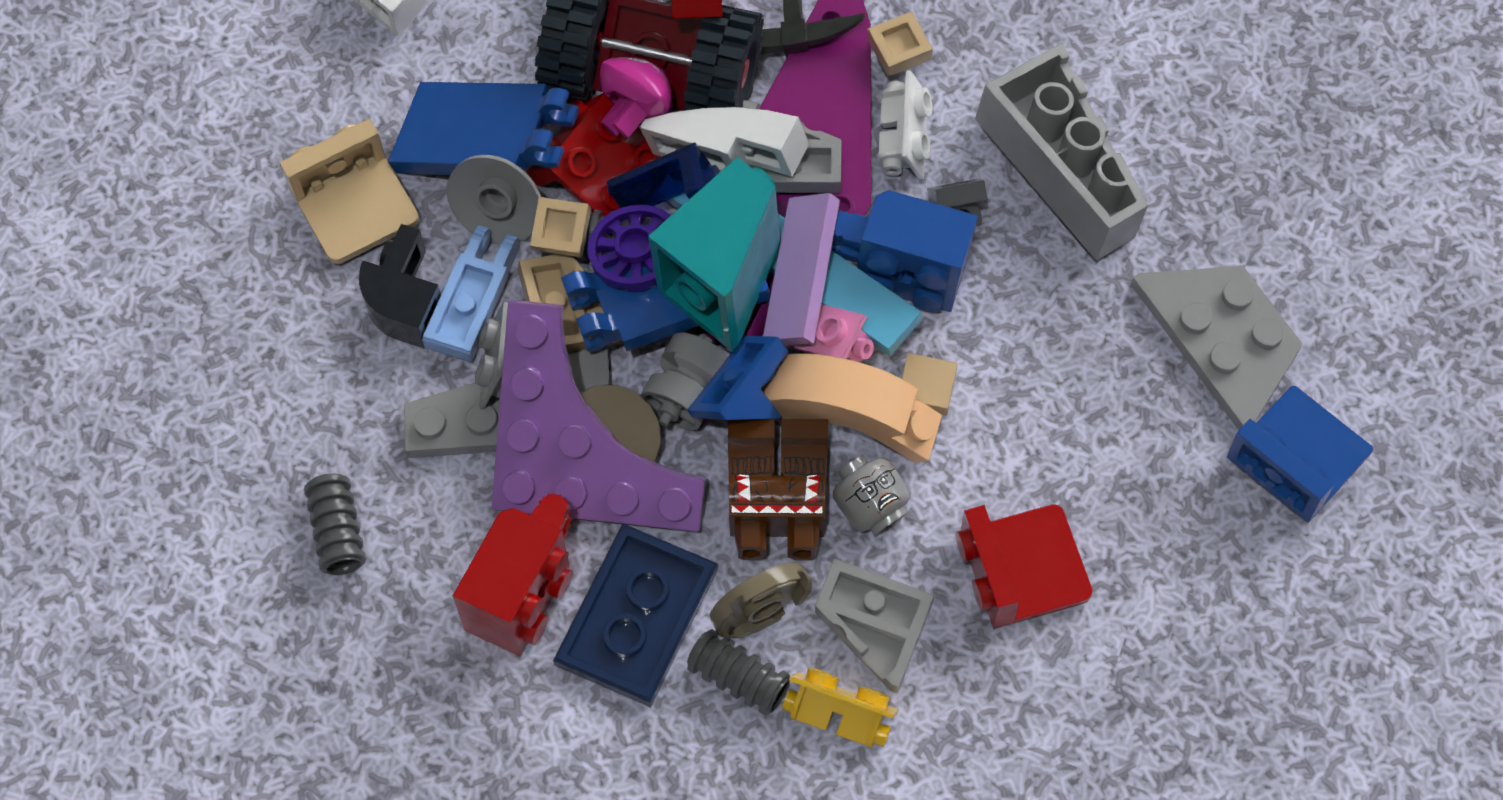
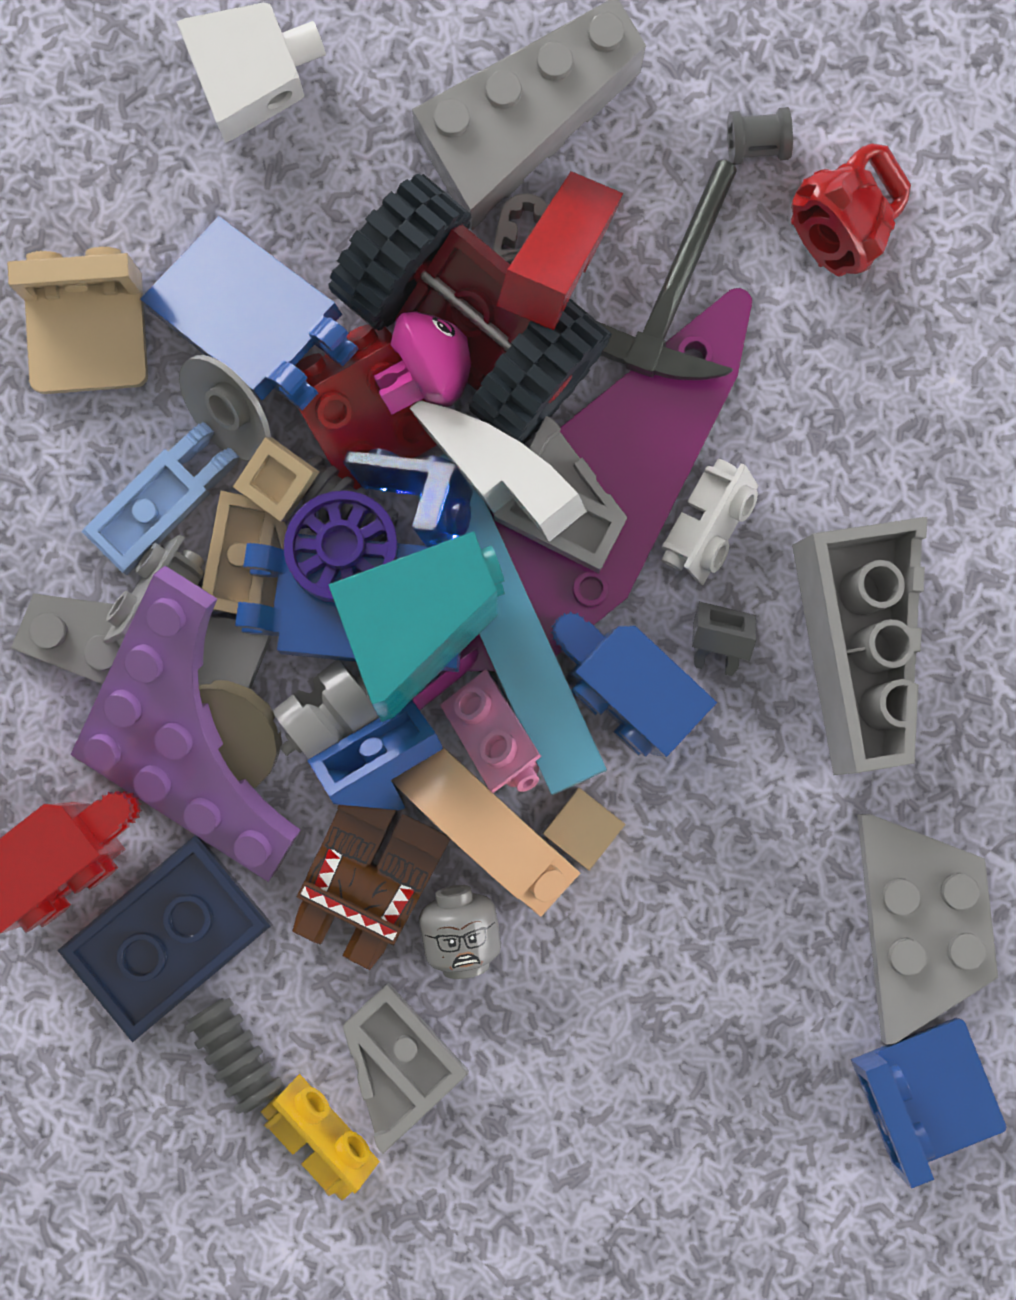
camera: 20 degrees right, 20 degrees up
(393, 295) = (69, 460): black brick -> none
(760, 600) = (284, 1006): dark tan tile -> none
(801, 268) = (501, 662): lavender tile -> none
(899, 43) = (753, 422): tan tile -> none
(1023, 563) = (578, 1080): red bracket -> none

